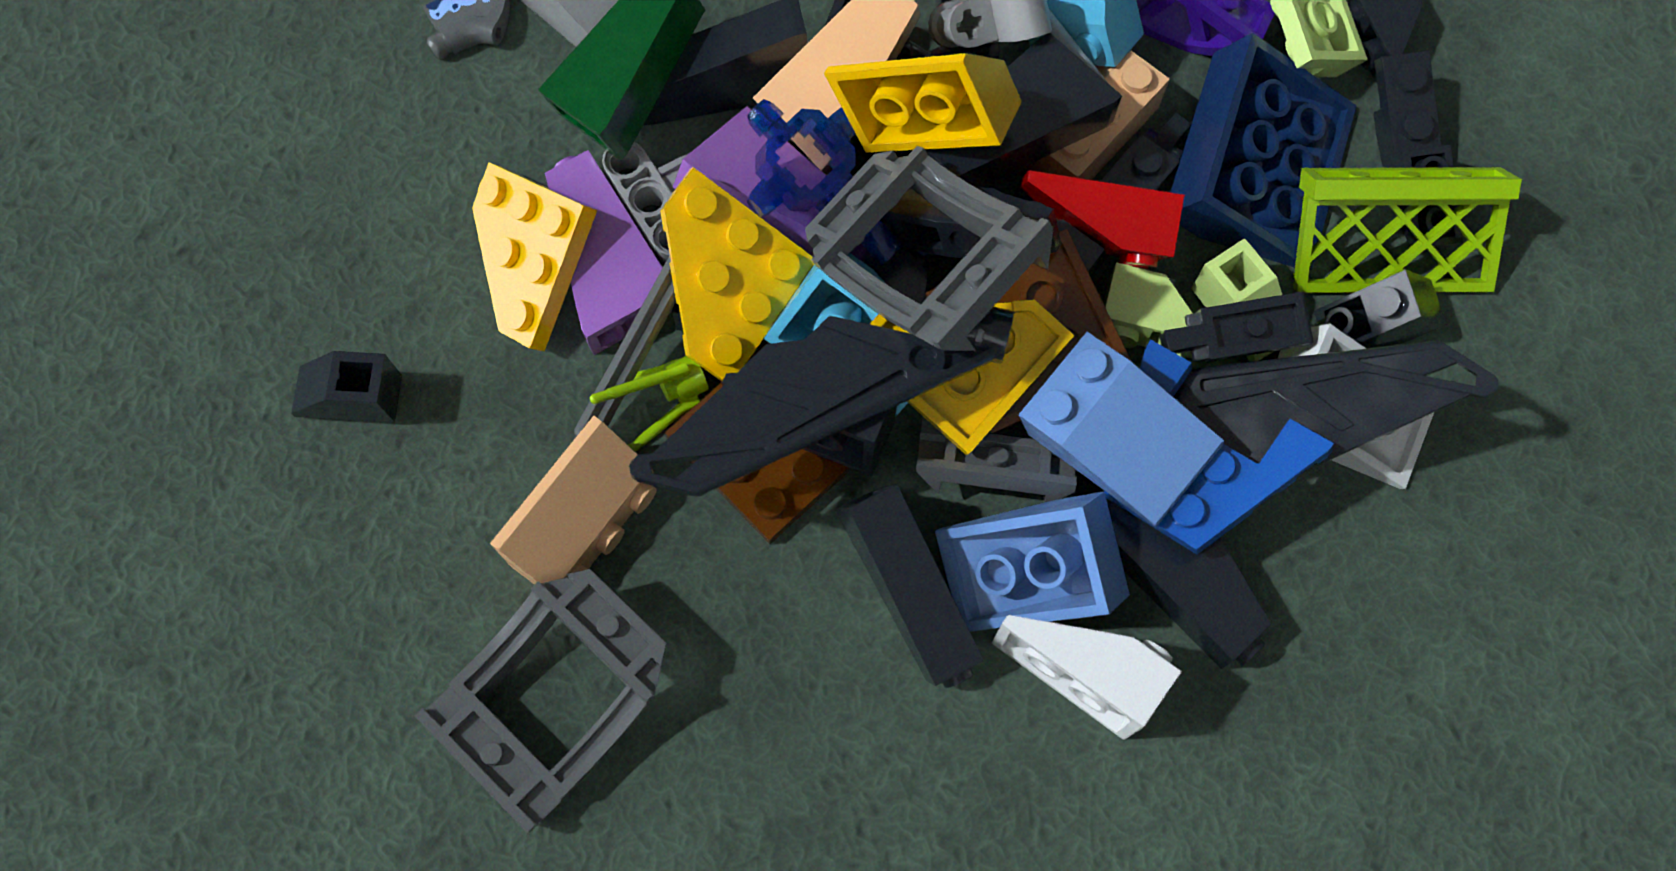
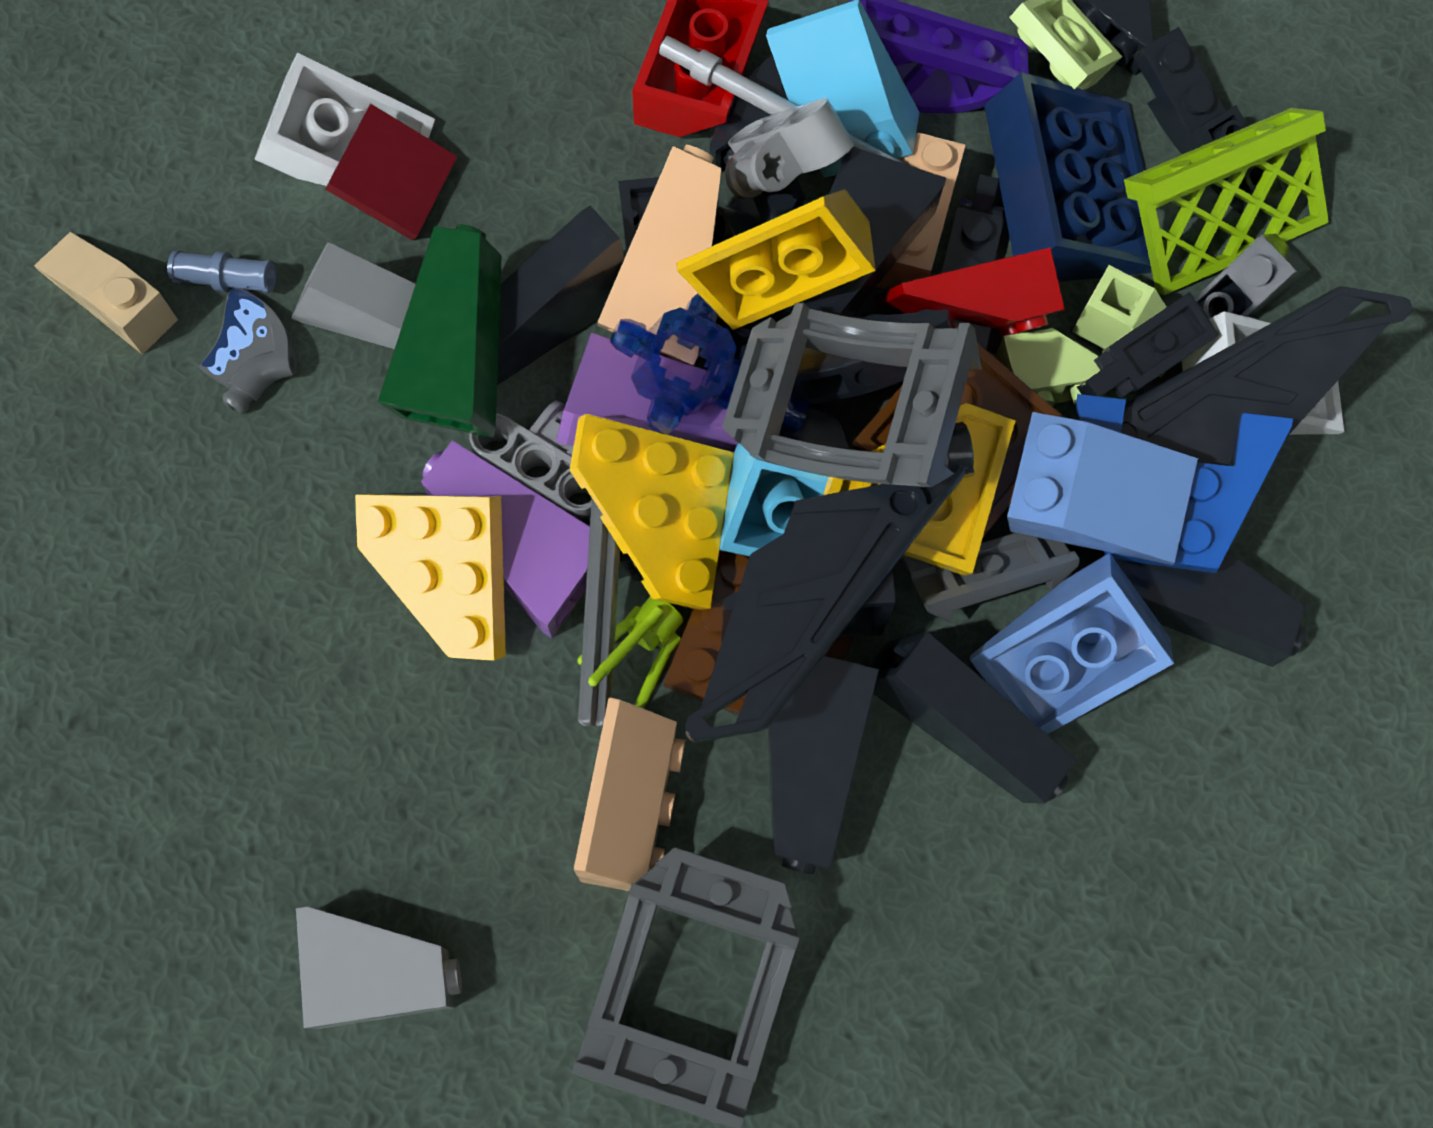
camera: 30 degrees left, 0 degrees up
(298, 556) = (368, 972): none -> light grey slope
(348, 388) = (326, 783): black slope -> none
(751, 548) = (814, 759): none -> black slope
(1096, 670) = (1193, 723): white slope -> none

